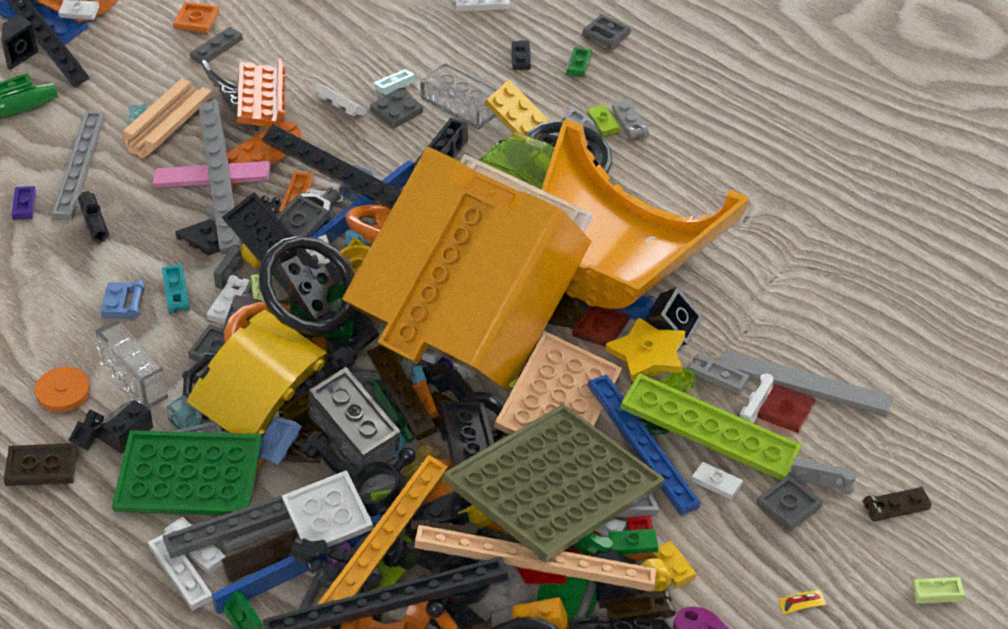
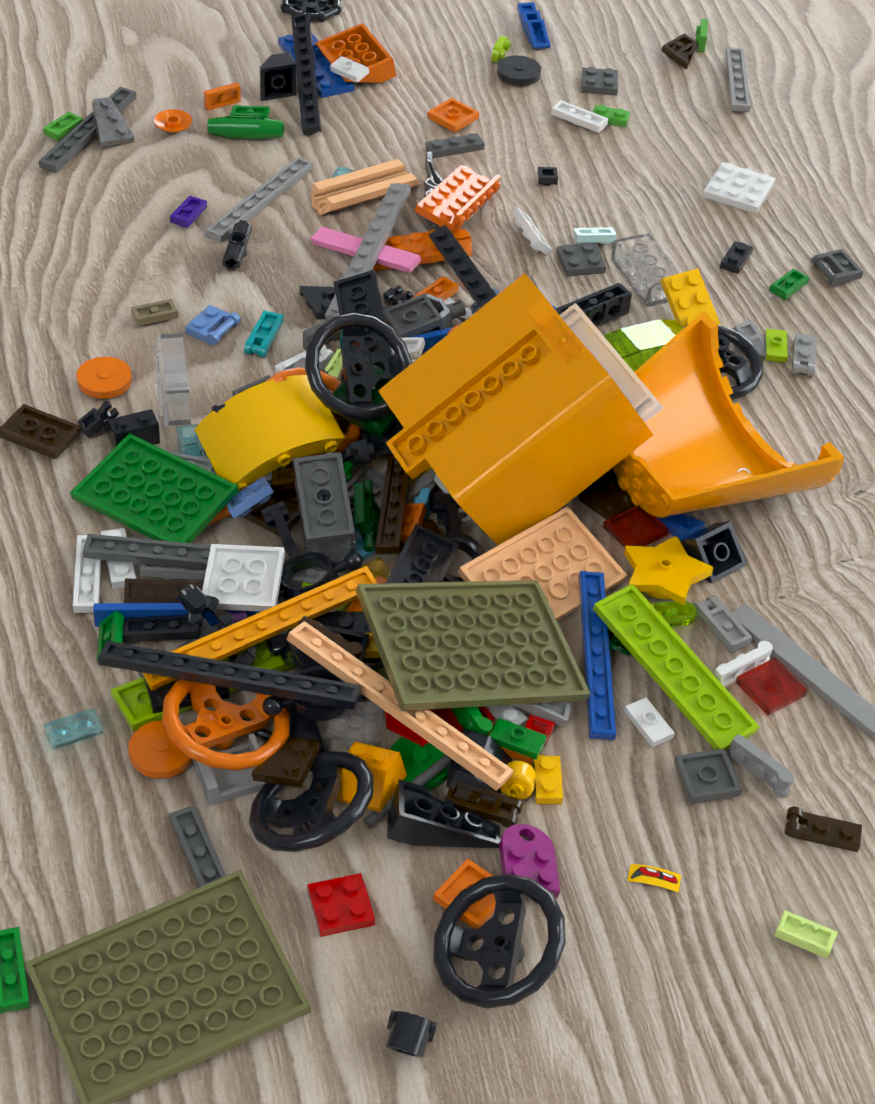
camera: 25 degrees right, 0 degrees up
(63, 310) = (154, 312): none -> dark tan plate
(280, 588) = (159, 628): none -> black plate
(317, 42) = (547, 175): none -> black plate

